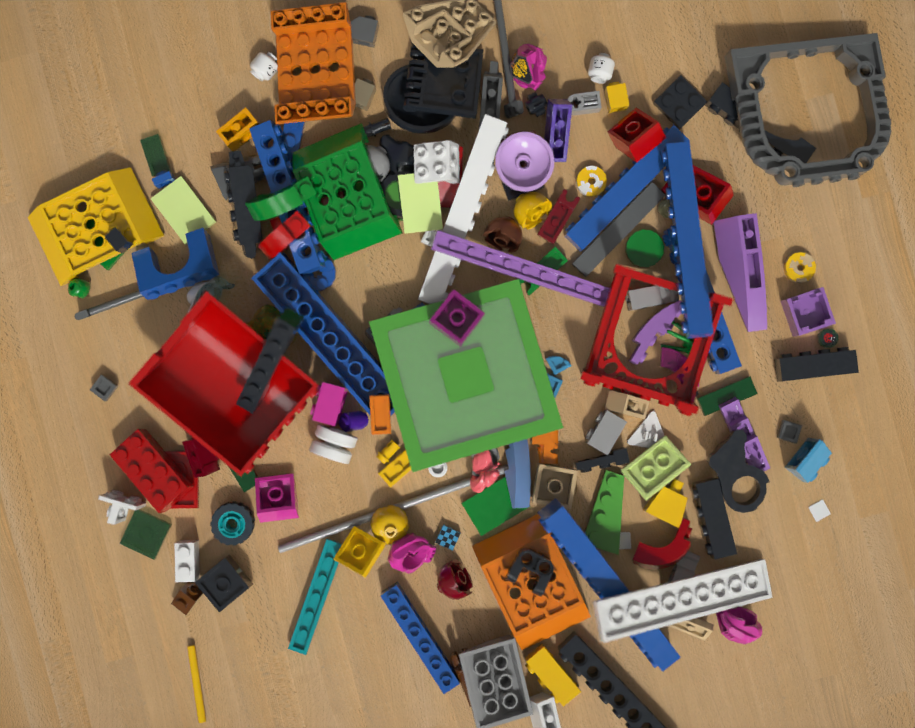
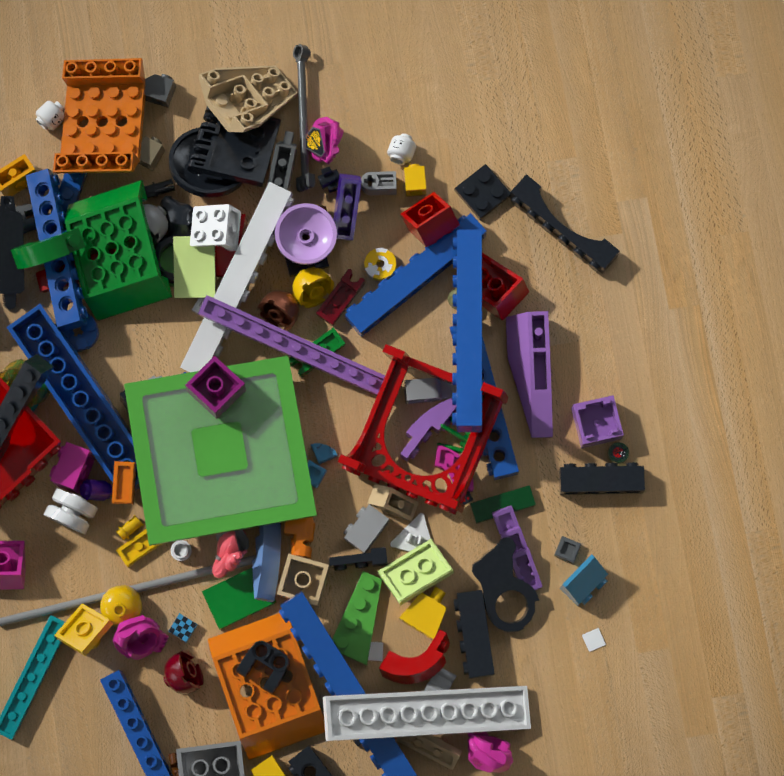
camera: 15 degrees right, 10 degrees down
(284, 235) = (45, 286): red arch -> none
(618, 229) = (403, 317): dark grey tile -> none
(644, 248) = (429, 339): green tile -> none
(808, 267) = (594, 384): yellow piece -> none
(857, 54) = (671, 156): dark grey arch -> none

